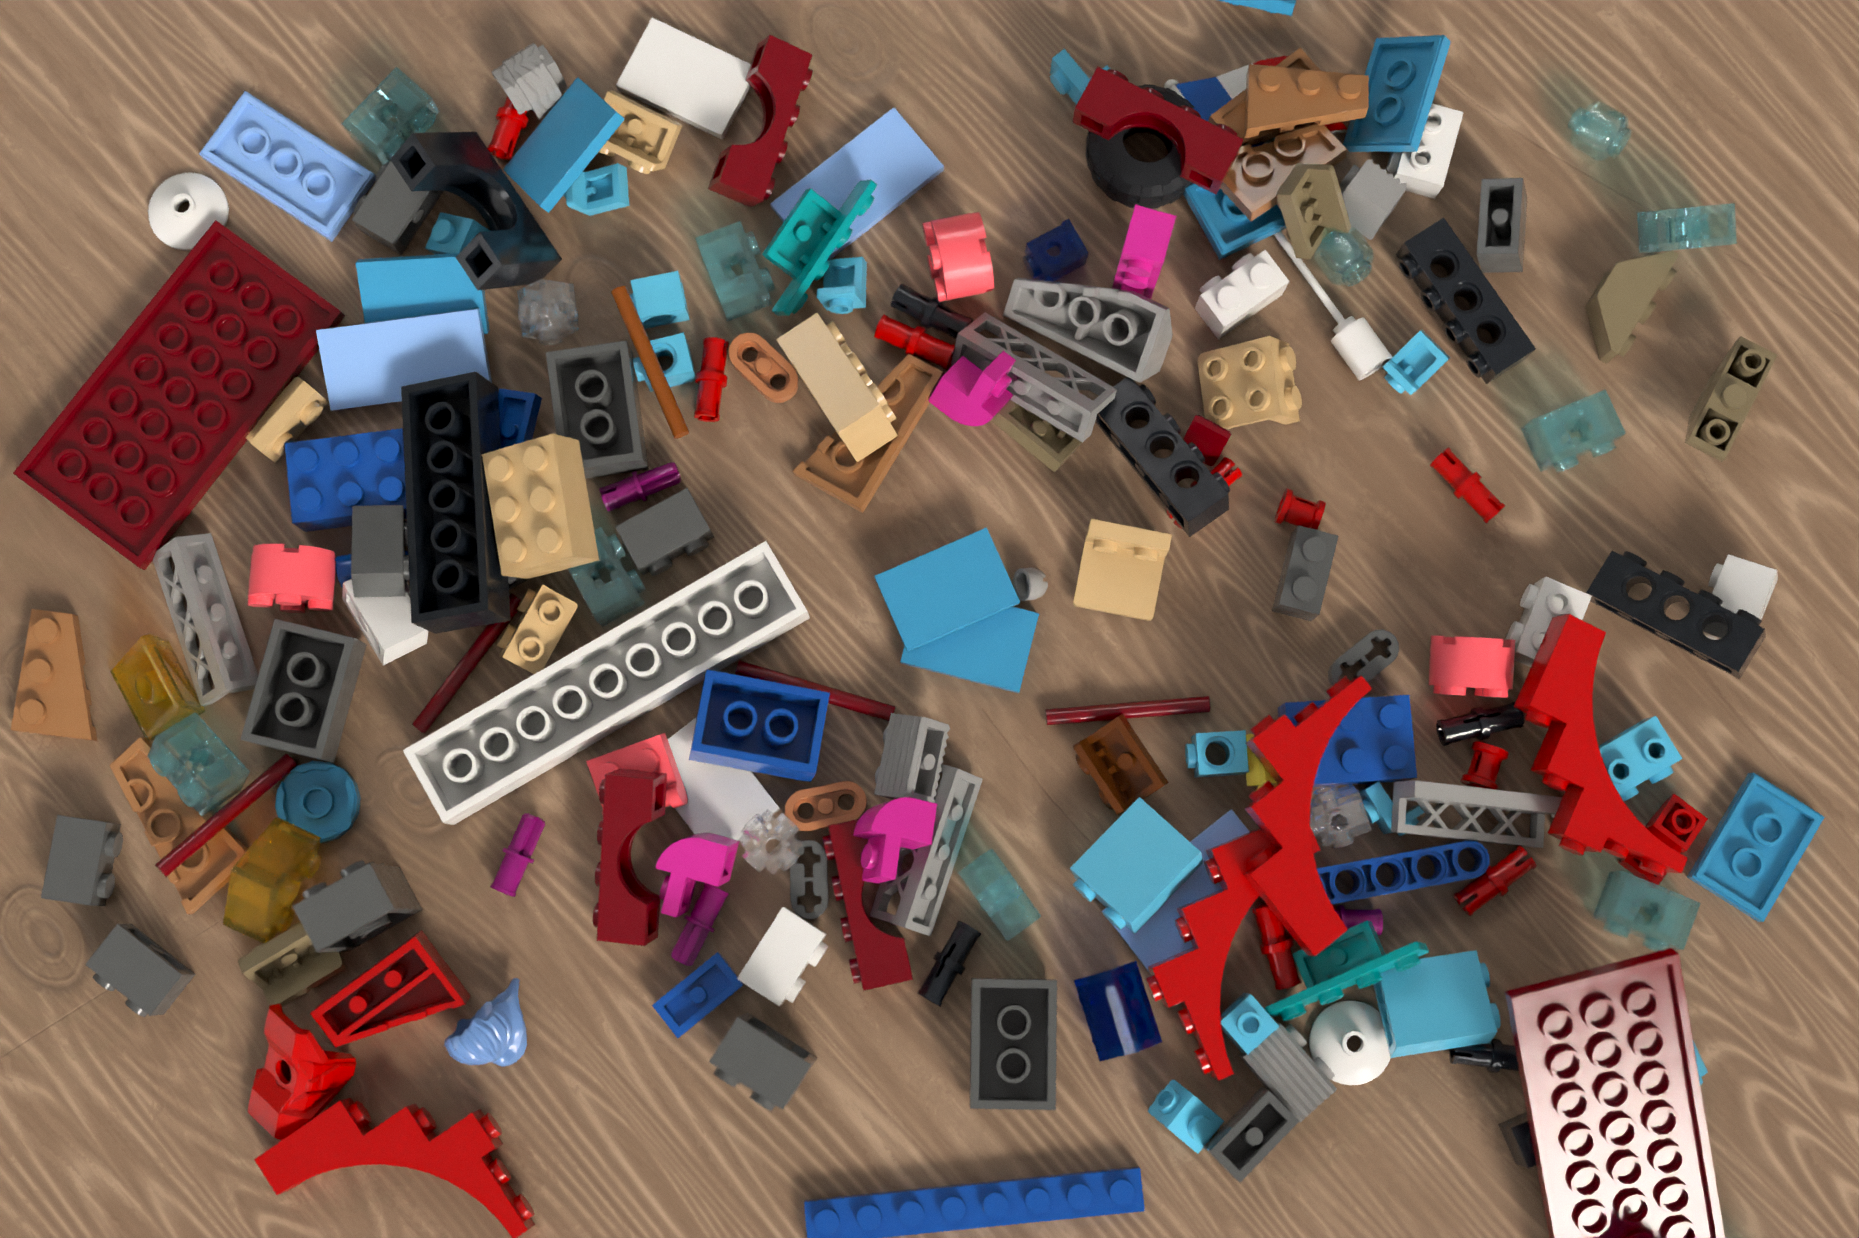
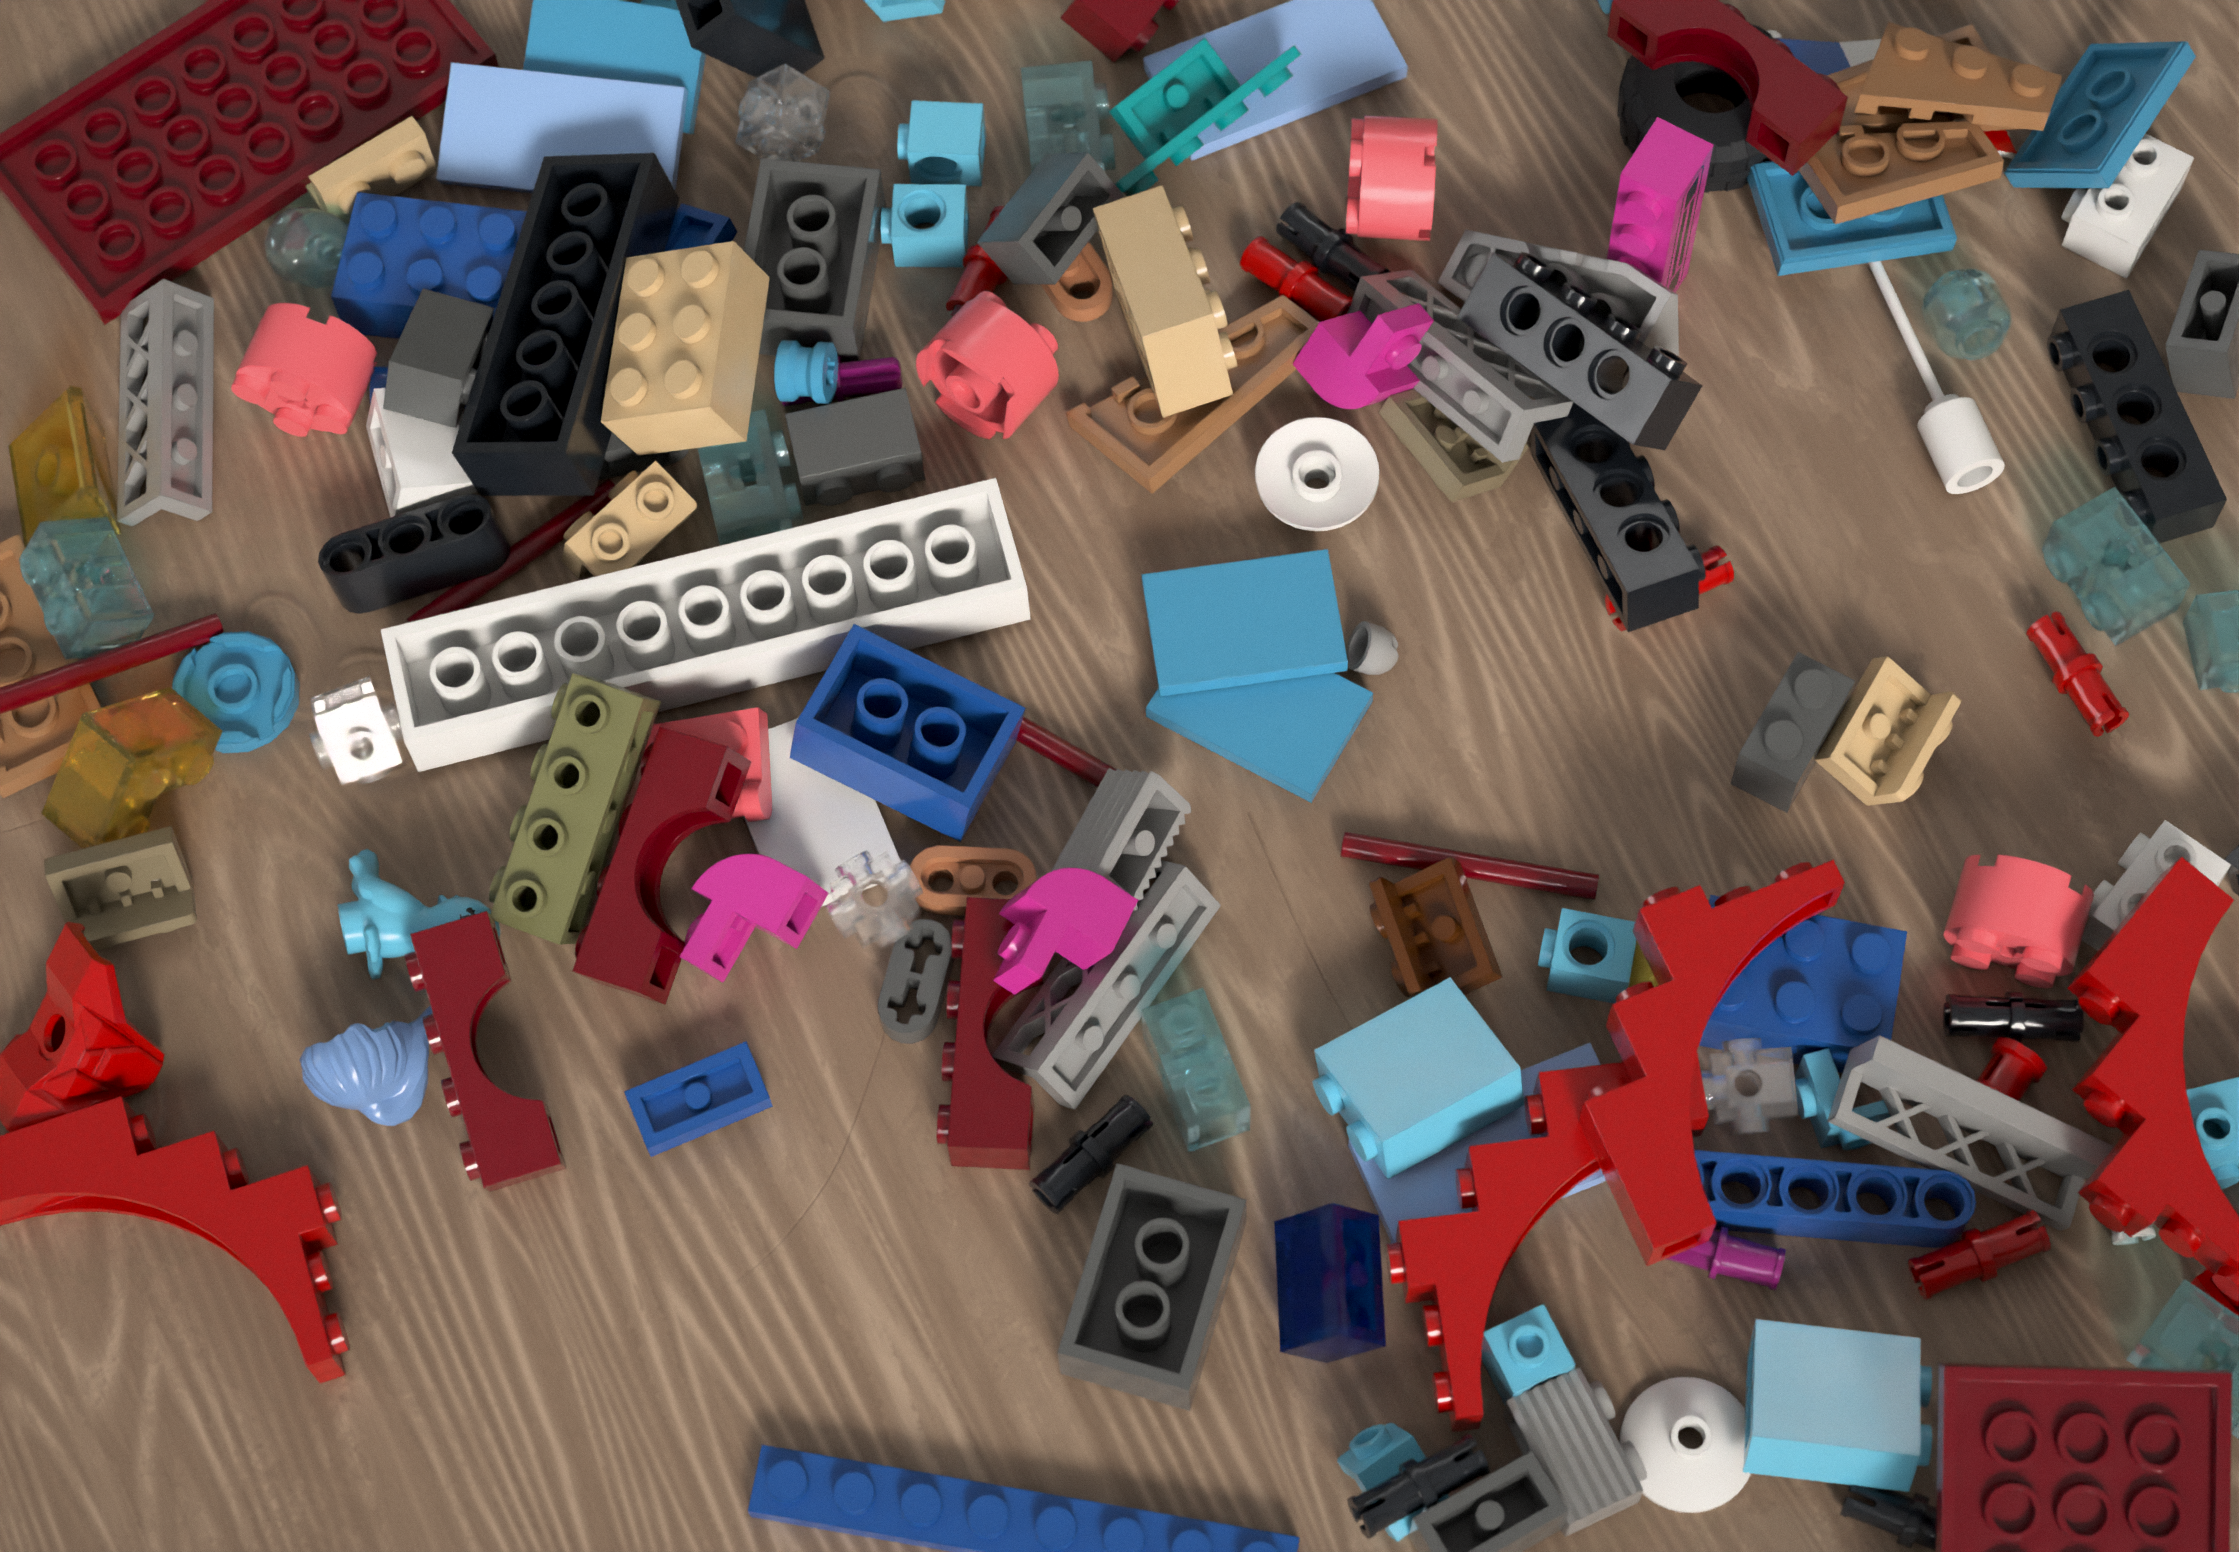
camera: 20 degrees right, 15 degrees down
(262, 485) = (306, 246): none -> clear light blue head
(304, 690) = (261, 525): dark grey brick -> none
(356, 907) = (241, 823): dark grey brick -> none
(386, 682) = (414, 553): none -> black beam
(393, 991) = (246, 968): red wedge -> none
(406, 815) = (356, 732): none -> clear brick
(473, 935) = (388, 915): none -> medium azure animal
(518, 854) = (489, 842): magenta axle -> none
(564, 835) = (573, 808): none -> olive brick
(588, 1051) = (462, 972): none -> dark red arch
(620, 495) = (806, 371): none -> dark azure wheel
(650, 362) = (905, 209): dark orange bar -> none
(698, 925) = (732, 1000): magenta axle -> none
(737, 457) = (989, 367): none -> coral brick
(747, 347) = (1049, 218): none -> dark grey brick
(761, 1061) = (763, 1195): dark grey brick -> none
(783, 956) = (842, 1071): white brick -> none
(844, 285) = (1215, 183): medium azure bracket -> none
(968, 454) = (1323, 451): none -> white dish
(1049, 267) = (1539, 211): clear blue brick -> none
(1057, 341) = (1504, 313): none -> black brick
(1121, 569) = (1516, 657): tan bracket -> none
(1206, 1127) = (1418, 1485): none -> black pin
(1207, 437) = (1699, 510): dark red slope -> none
(1241, 294) = (1797, 328): white brick -> none
(1249, 383) = (1778, 452): tan bracket -> none
(1277, 948) = (1606, 1263): red pin -> none
(1299, 511) = (1803, 637): red bush -> none
(1311, 207) = (1930, 221): dark tan bracket -> none
(1347, 961) = (1698, 1304): teal bracket -> none
(1358, 652) = (1873, 894): dark grey beam -> none
(1364, 559) = (1886, 734): none -> tan bracket
(1370, 197) = (2021, 238): light grey brick -> none
(1414, 363) = (2038, 485): medium azure bracket -> none
(1495, 411) = (2114, 567): none -> clear light blue brick

